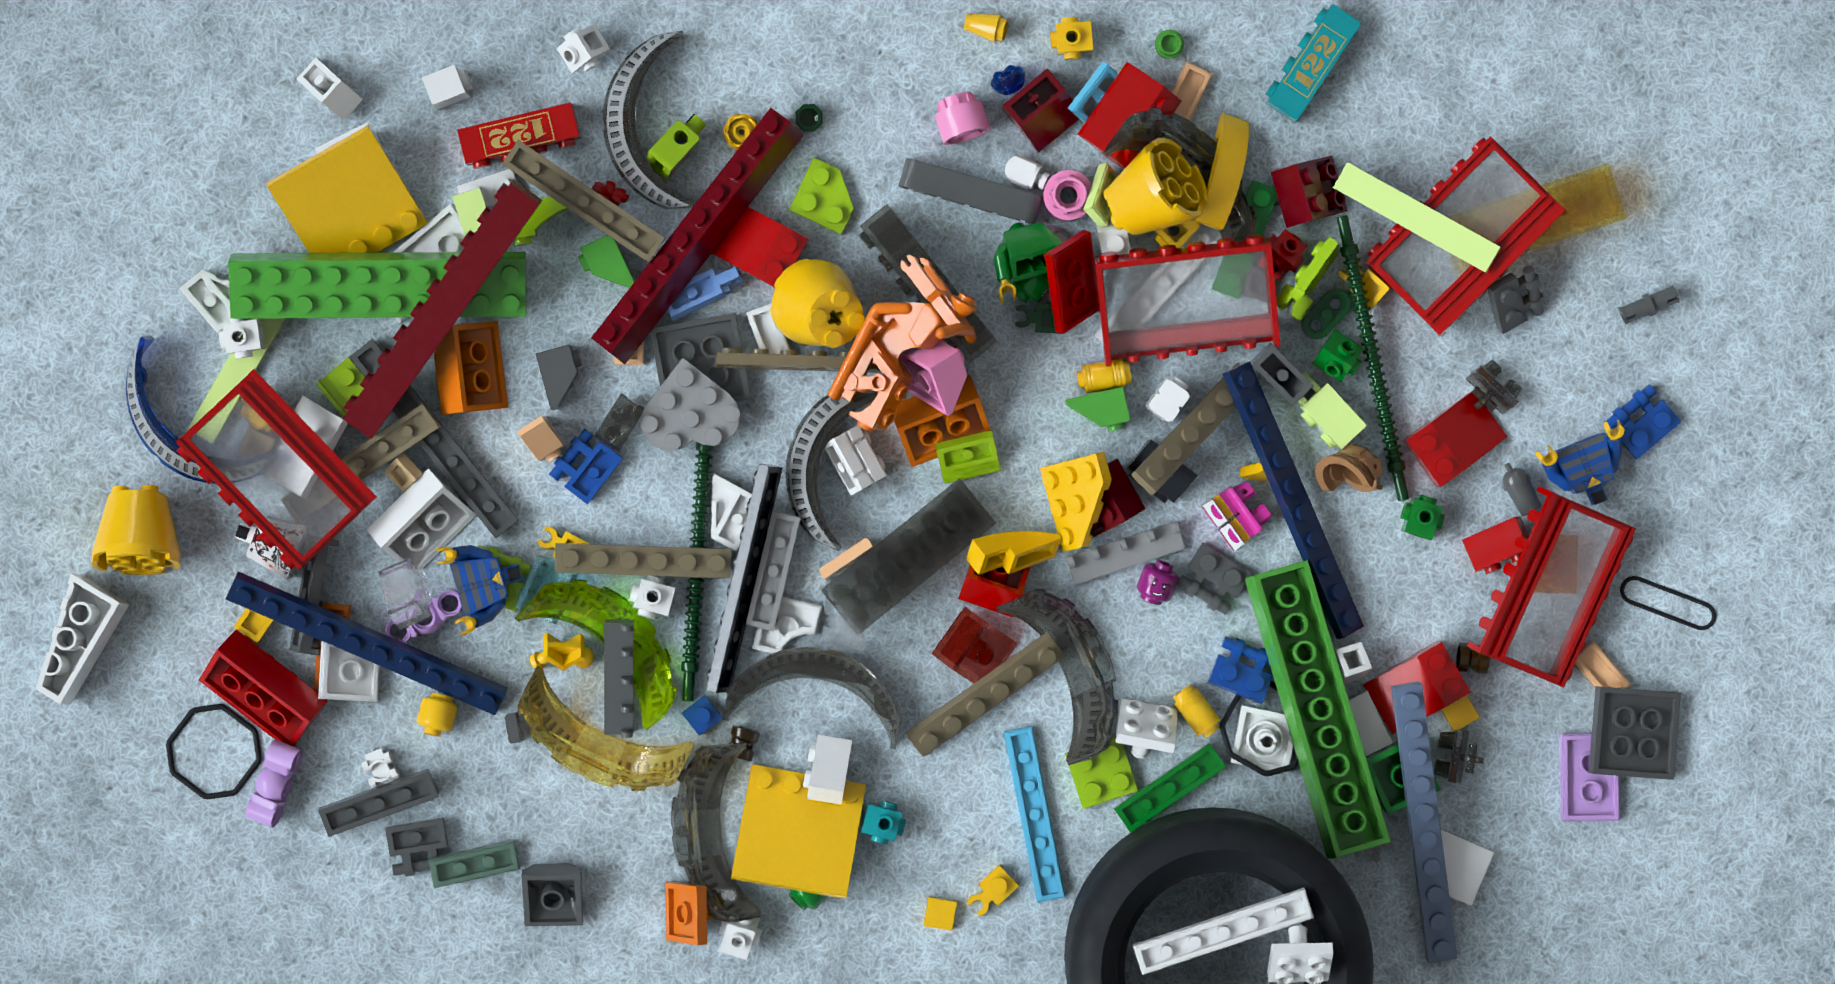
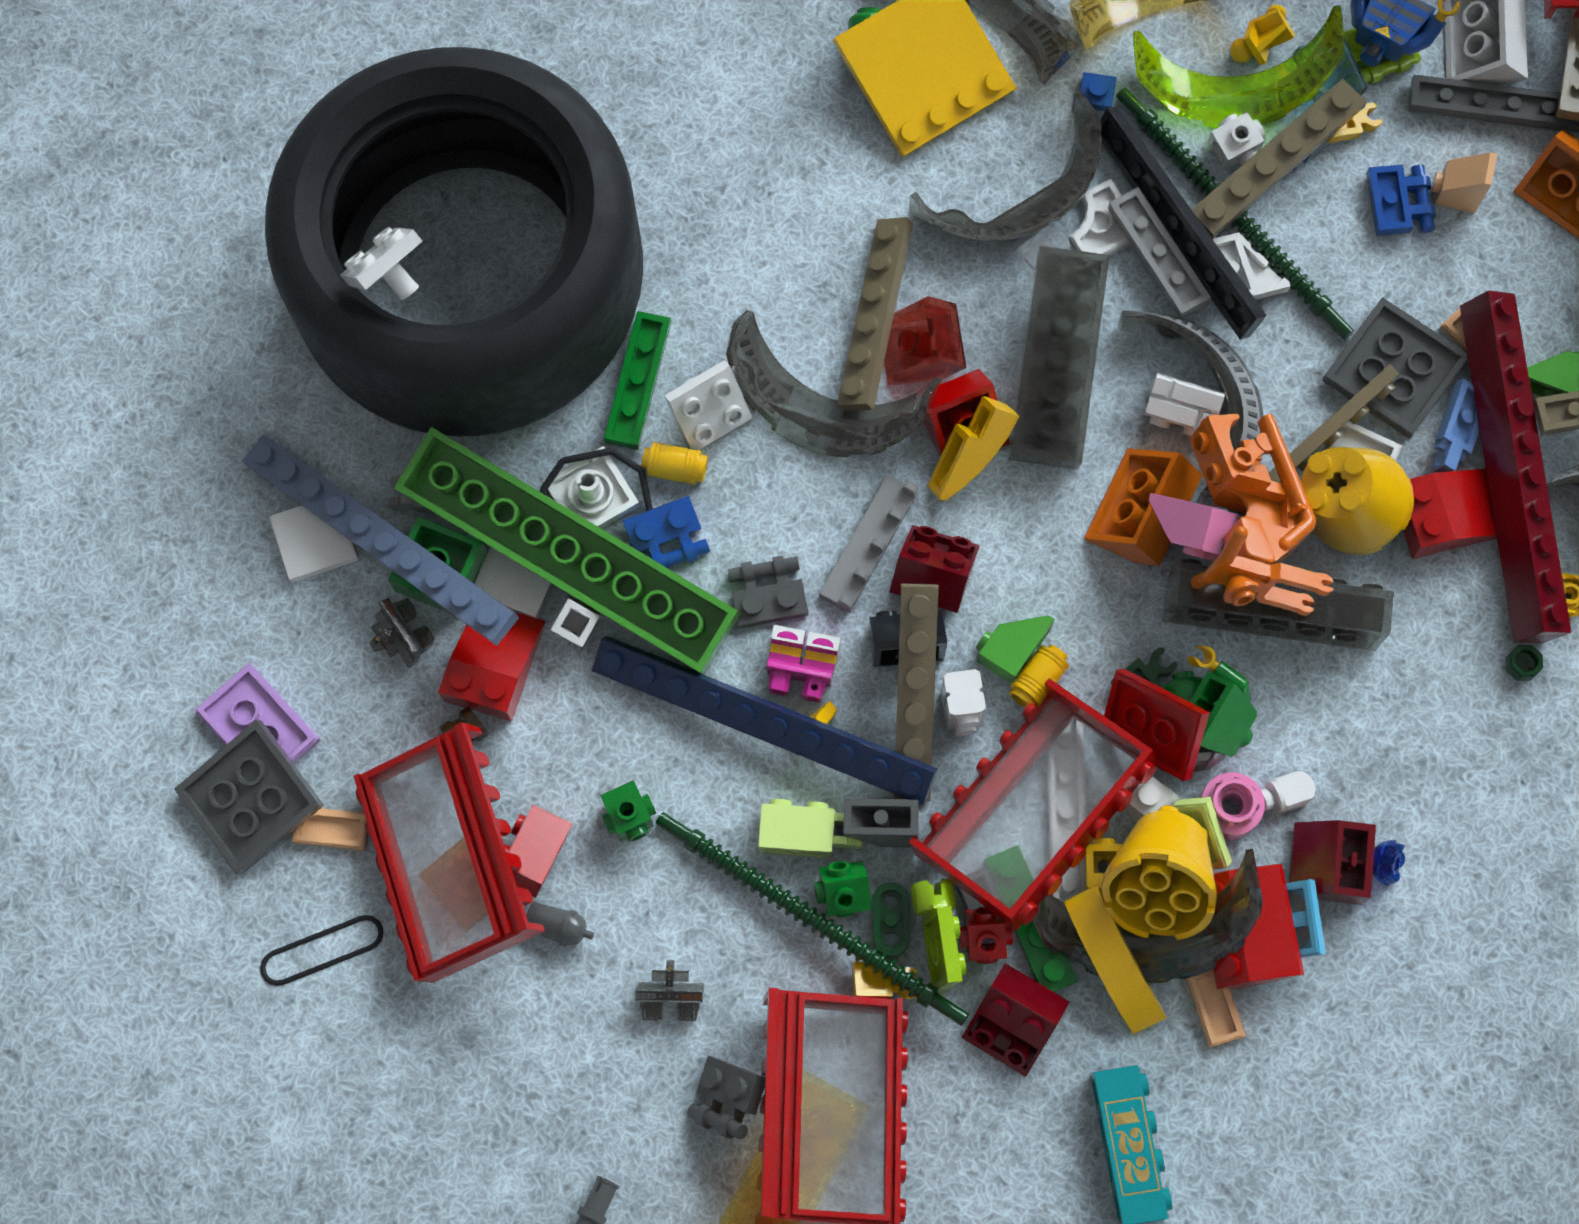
camera: 140 degrees right, 15 degrees down
(403, 472) = (1544, 61): tan plate -> none
(558, 372) = (1504, 249): dark grey slope -> none
(619, 423) = (1414, 252): clear smoke hips -> none
(619, 677) = (1198, 55): dark grey hinge -> none
(689, 409) = (1367, 316): light grey plate -> none
(742, 734) = (1043, 98): dark brown wheel -> none
(823, 197) = (1439, 606): lime plate -> none
(829, 769) = (950, 132): white brick -> none
(846, 559) = (1109, 313): light nougat tile -> none
(875, 813) = (861, 134): teal brick -> none
(940, 913) = (738, 111): yellow tile -> none
(961, 118) = (1395, 784): bright pink piece -> none
(967, 456) = (1089, 496): lime plate -> none
(970, 190) = (1319, 728): dark grey beam -> none
(988, 26) = (1455, 894): yellow cone -> none
(995, 887) = (711, 171): yellow plate -> none
(1034, 814) = (735, 259): medium azure tile -> none
(1075, 496) = (968, 548): yellow plate -> none
(1082, 33) = (1363, 963): yellow brick -> none
(1103, 776) = (701, 338): lime plate -> none
(1157, 582) = (815, 540): magenta head -> none
(1169, 44) = (1277, 1037): bright green plate -> none
(1223, 931) = (477, 233): white tile -> none
(1353, 465) = (737, 801): medium nougat helmet -> none
(1417, 217) = (894, 1081): yellowish green tile -> none
(1454, 439) = (662, 913): red slope -> none
(1460, 713) = (429, 673): yellow tile -> none
(1585, 463) = (518, 1003): torso -> none
(1649, 427) = (486, 1095): blue plate -> none

